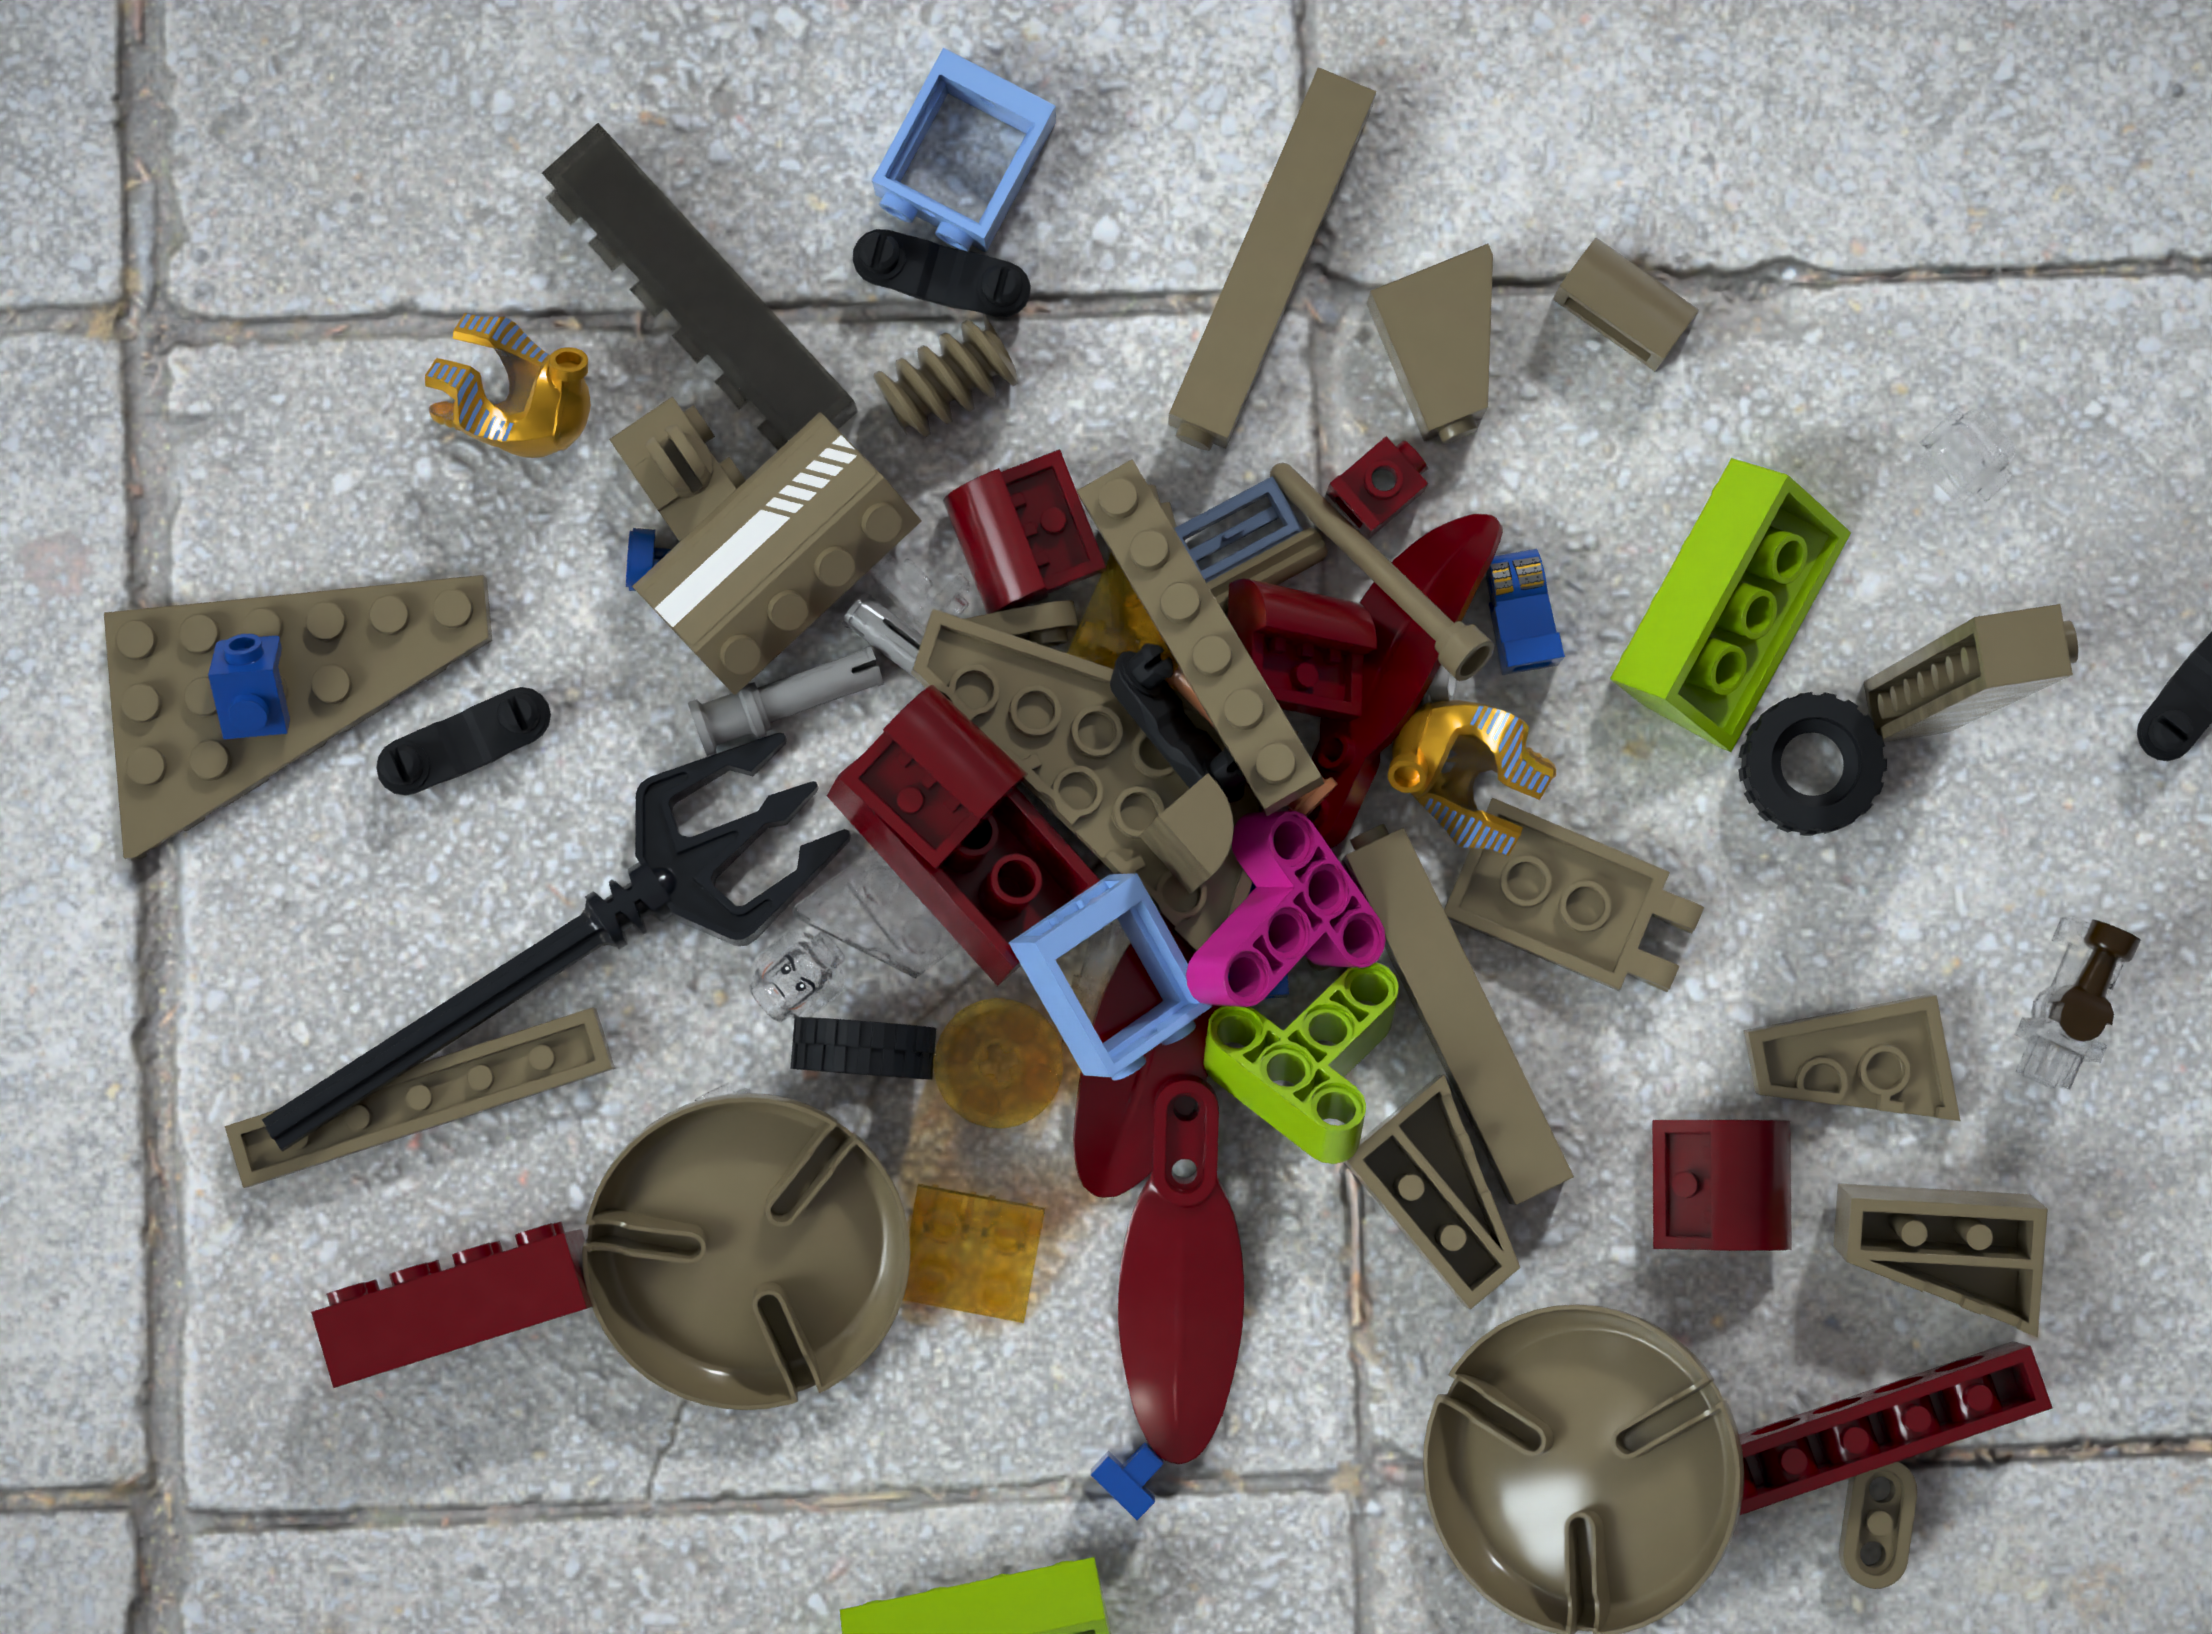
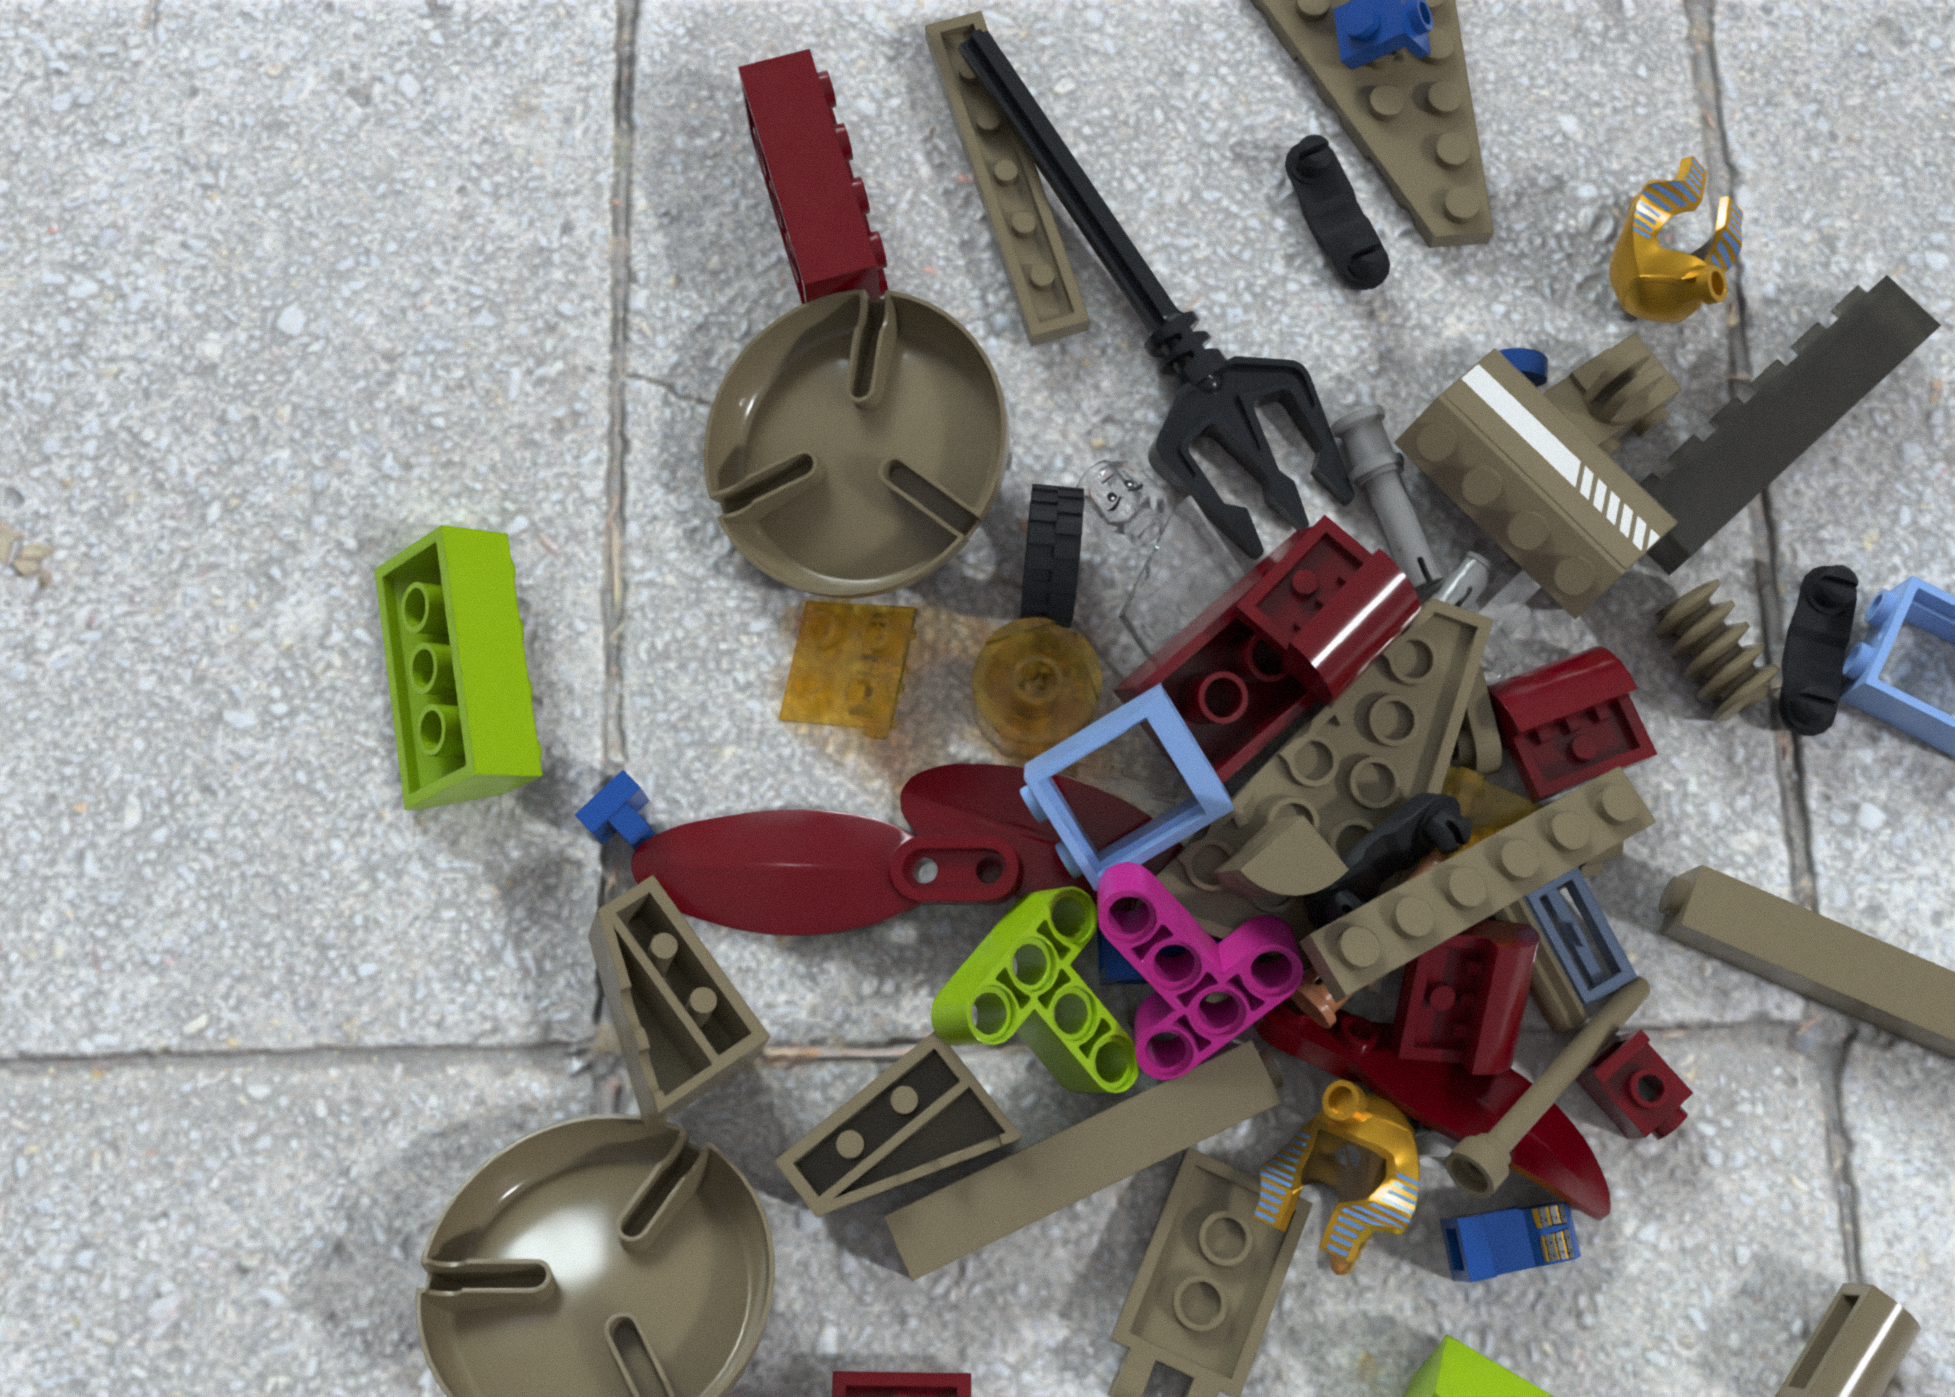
camera: 85 degrees right, 10 degrees down
(1319, 1418) = (669, 1003): none -> dark tan wedge
(1440, 341) = (1798, 1154): dark tan slope -> none

